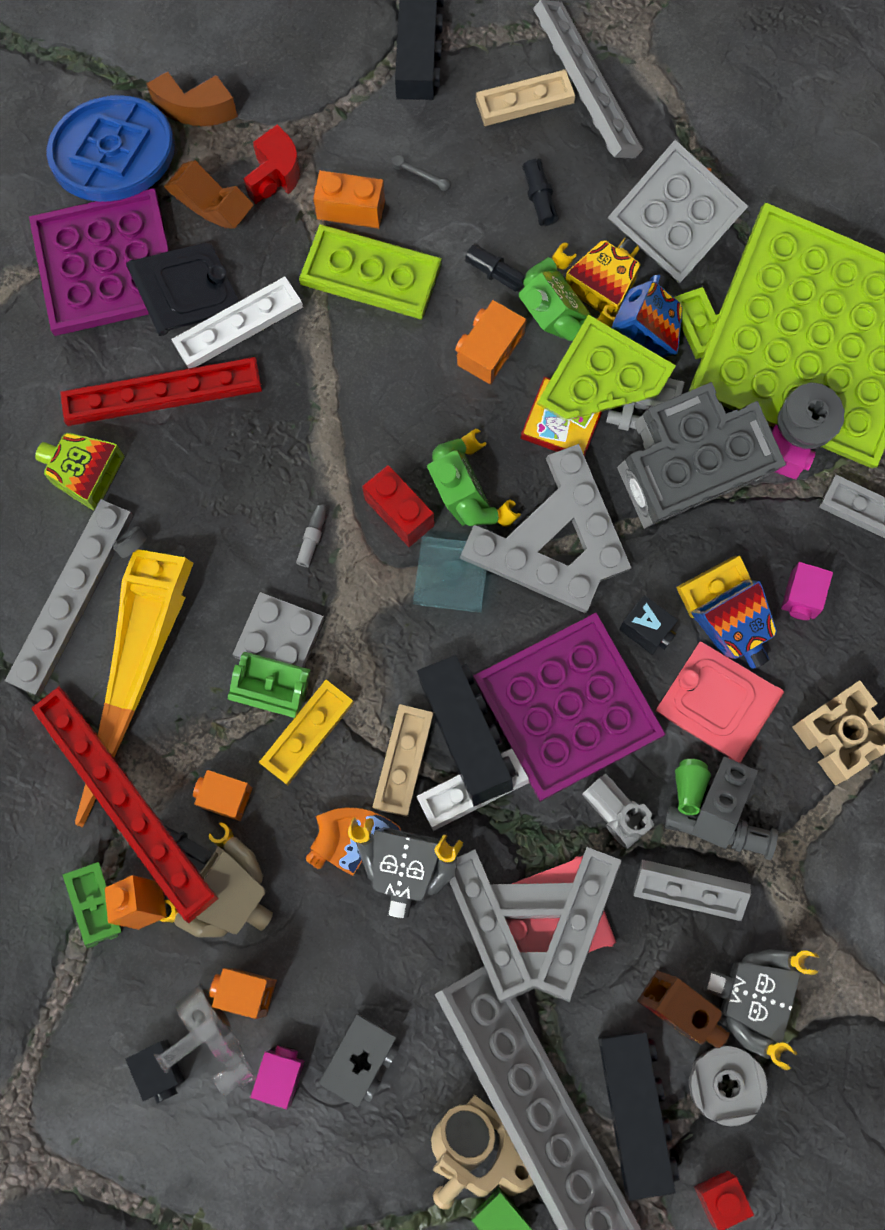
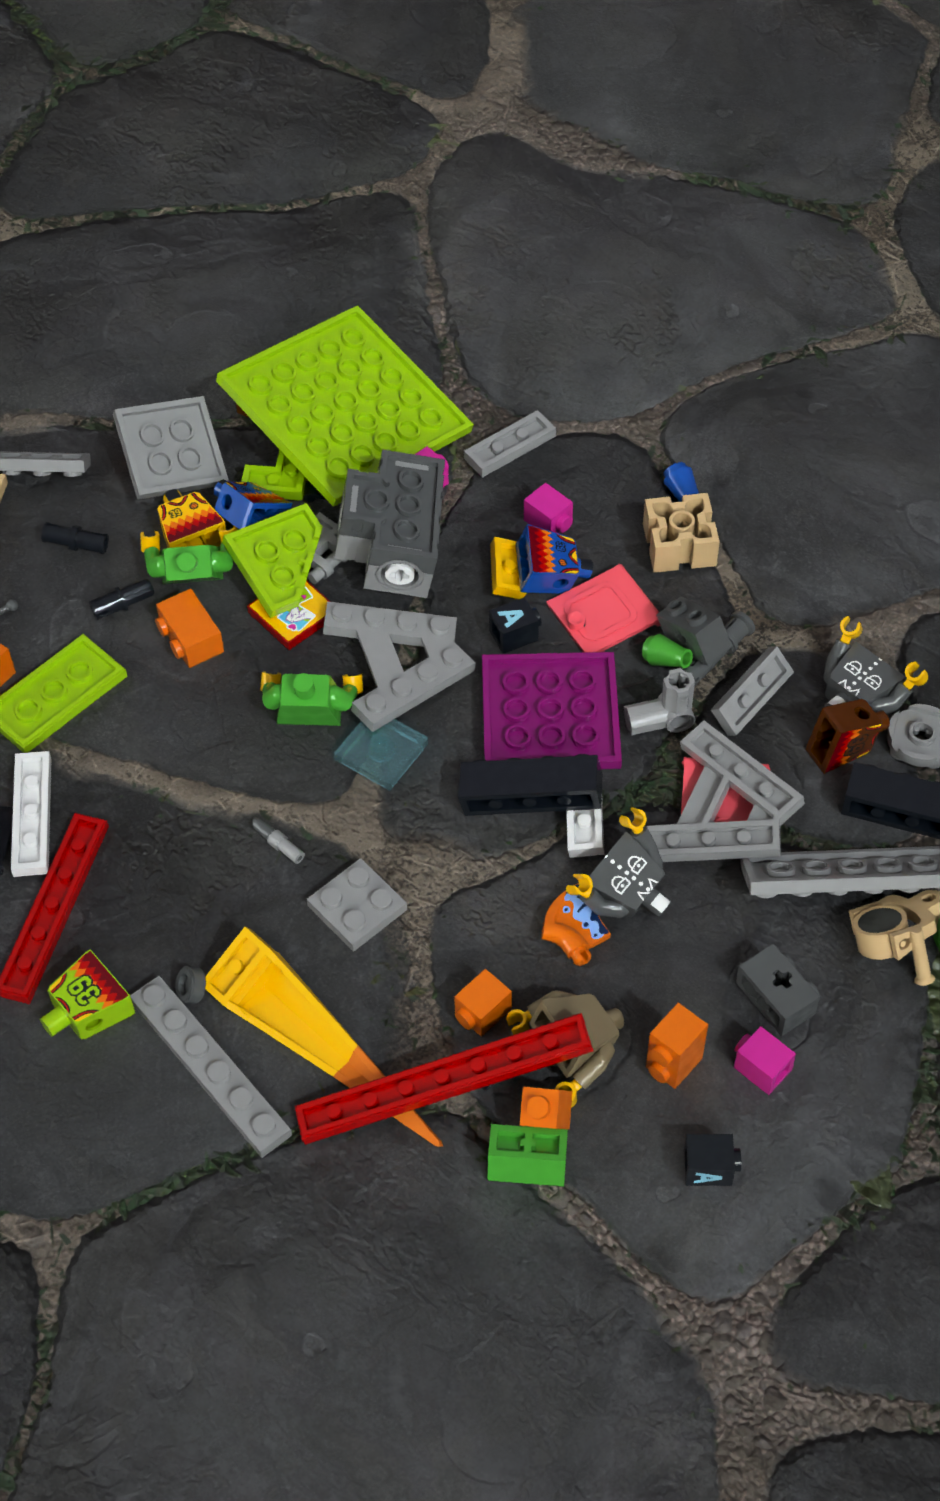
camera: 65 degrees left, 20 degrees down
(211, 1030) = (686, 1085): clear piece -> none
(269, 684) = (400, 921): bright green hinge -> none
(306, 732) = (461, 914): yellow plate -> none
(398, 506) = (296, 755): red brick -> none
(403, 760) = (529, 850): tan plate -> none
(811, 416) = (411, 432): dark grey piece -> none

